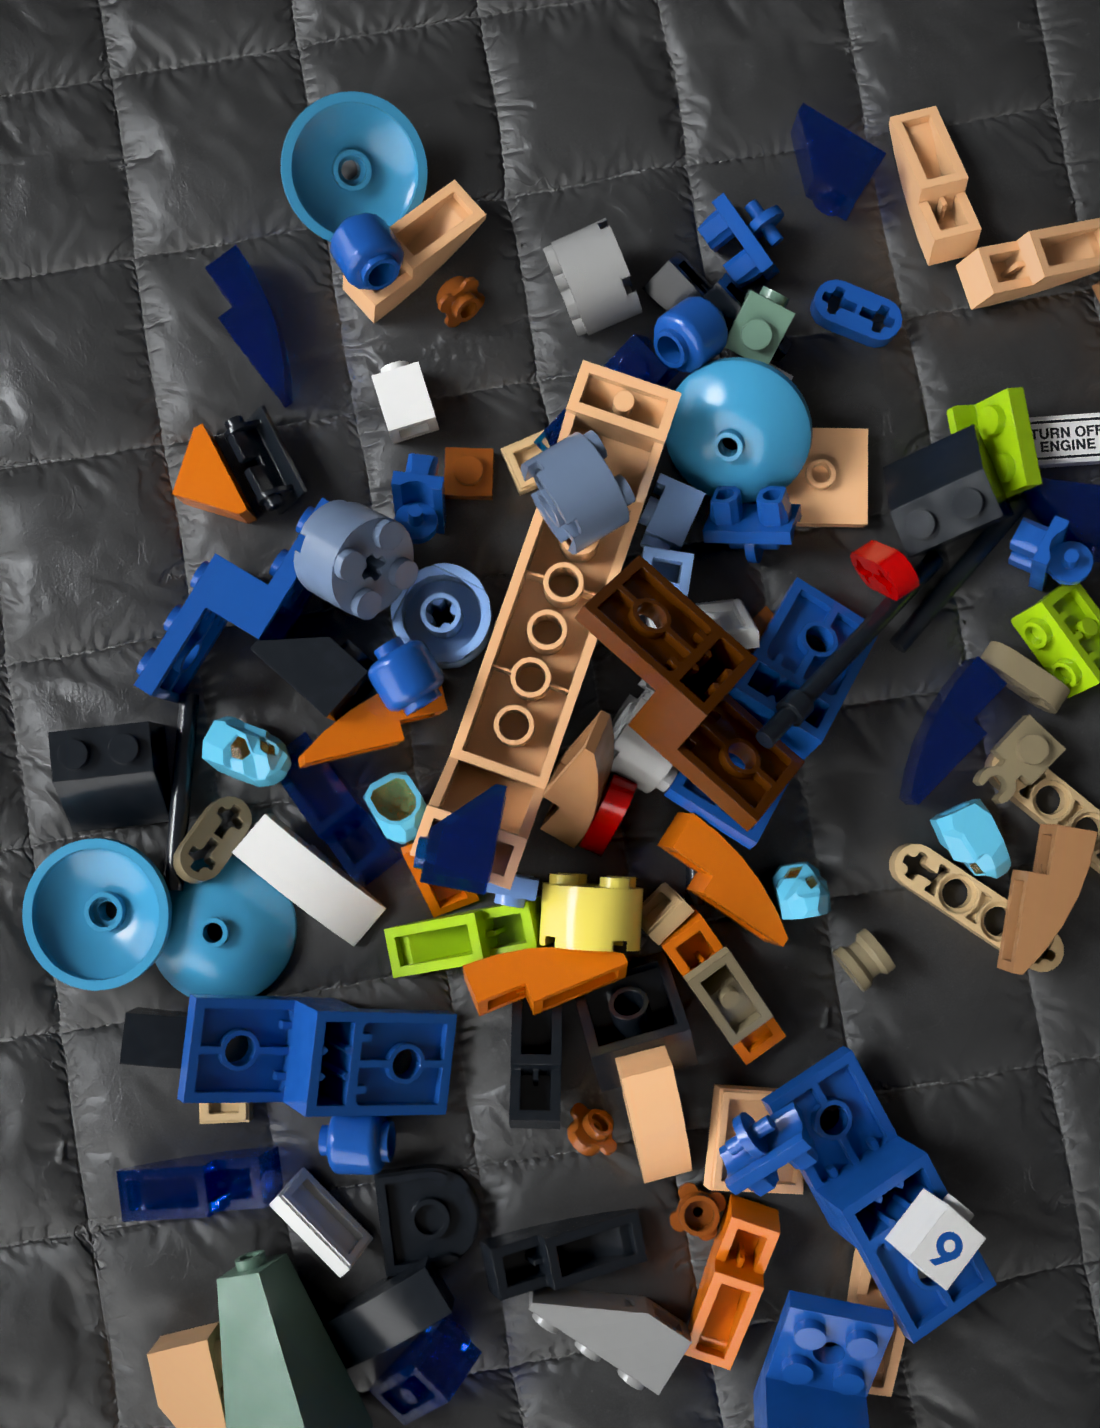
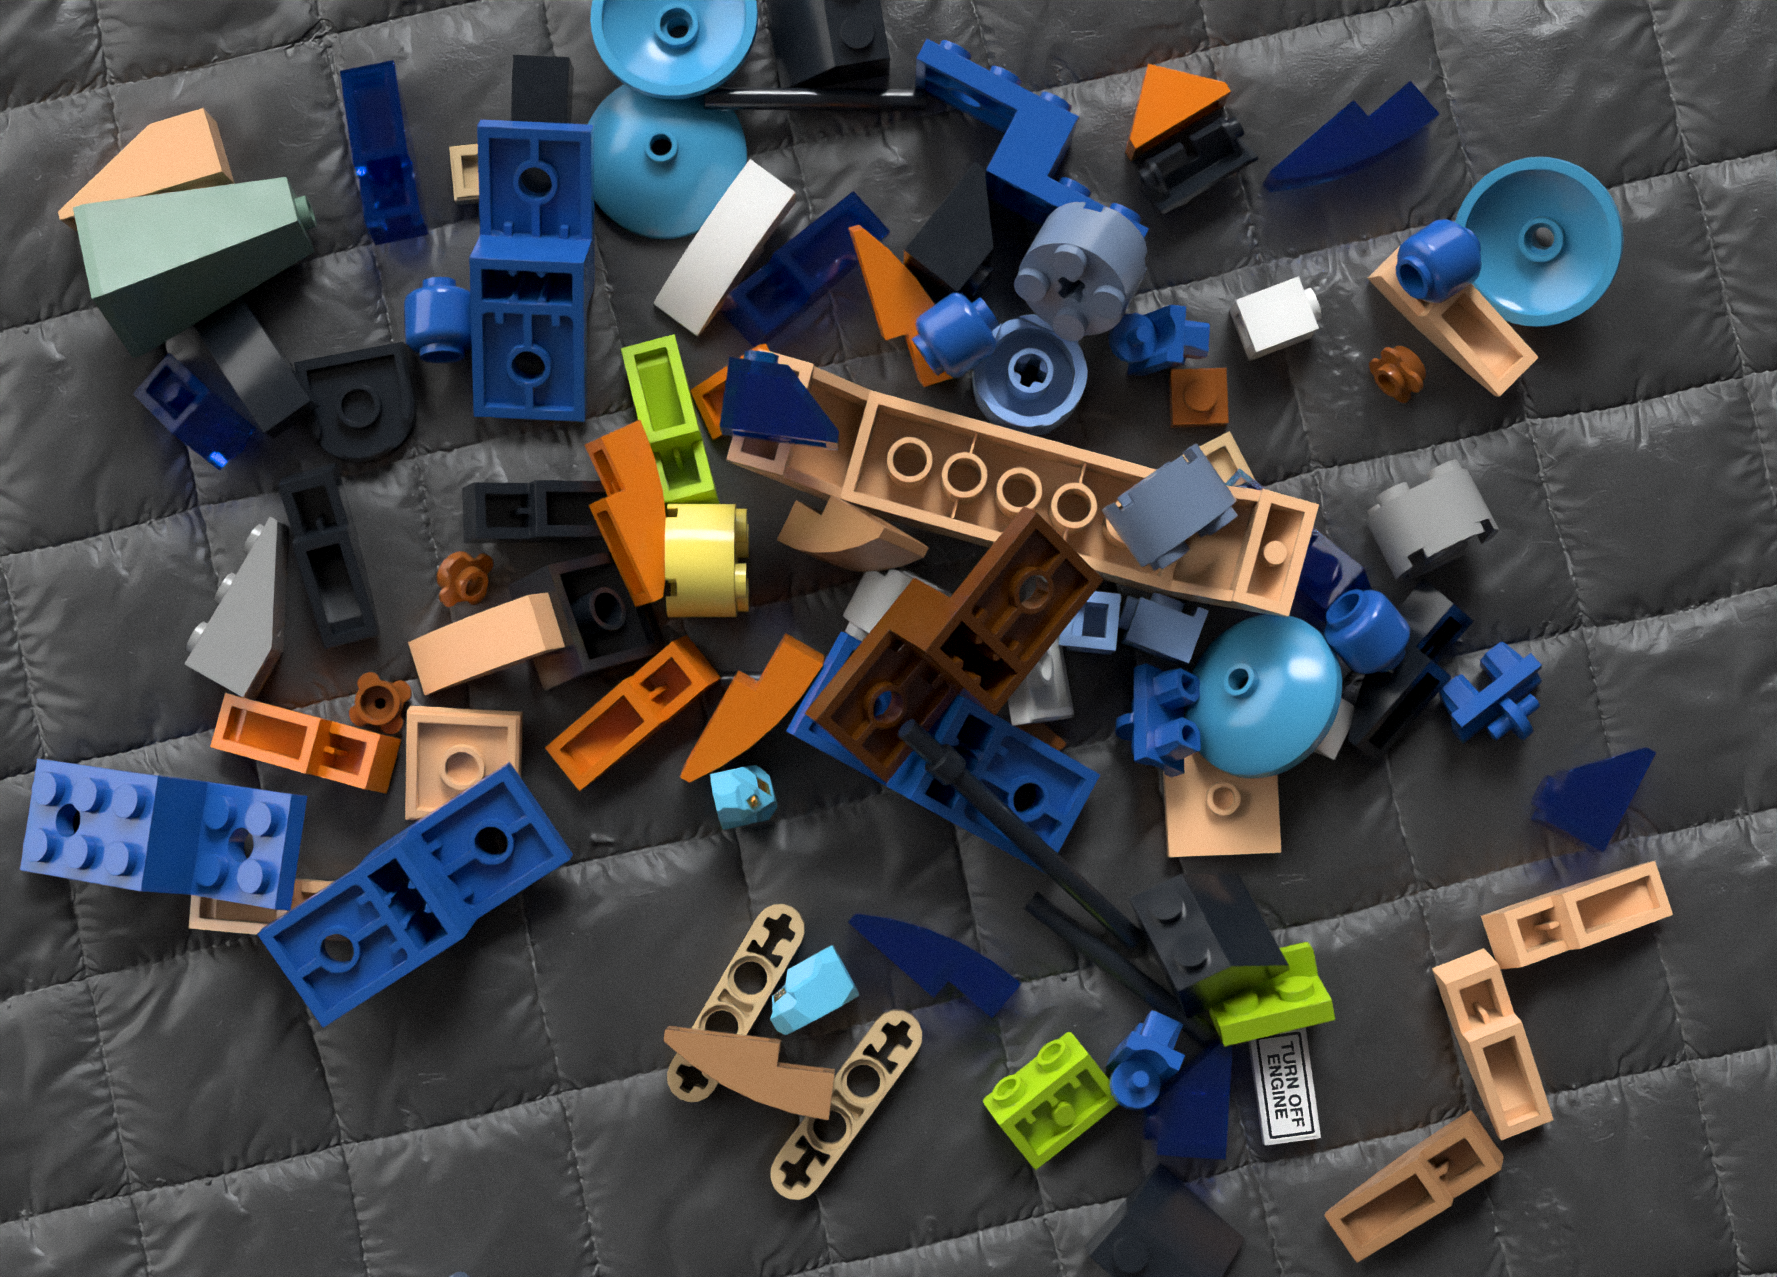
camera: 85 degrees right, 0 degrees up
(203, 833) = (769, 127): dark tan beam -> none
(245, 752) = (862, 167): medium azure rock -> none
(321, 1222) = (350, 286): white tile -> none
(396, 806) = (812, 335): rock -> none
(522, 888) = (725, 475): medium blue plate -> none
(609, 814) = (816, 573): red beam -> none
(663, 913) = (709, 643): tan tile -> none
(728, 996) = (623, 712): dark tan slope -> none
(760, 325) = (1385, 712): sand green bracket -> none
(765, 1147) = (464, 761): blue hips -> none
(857, 310) = (1430, 838): blue beam -> none
(864, 959) = (669, 874): dark tan wheel -> none
(884, 570) = (1114, 872): red beam -> none
(936, 1237) = (376, 946): white brick -> none
(1022, 755) = (912, 1044): dark tan plate -> none
(1026, 677) = (1002, 1043): dark tan beam -> none

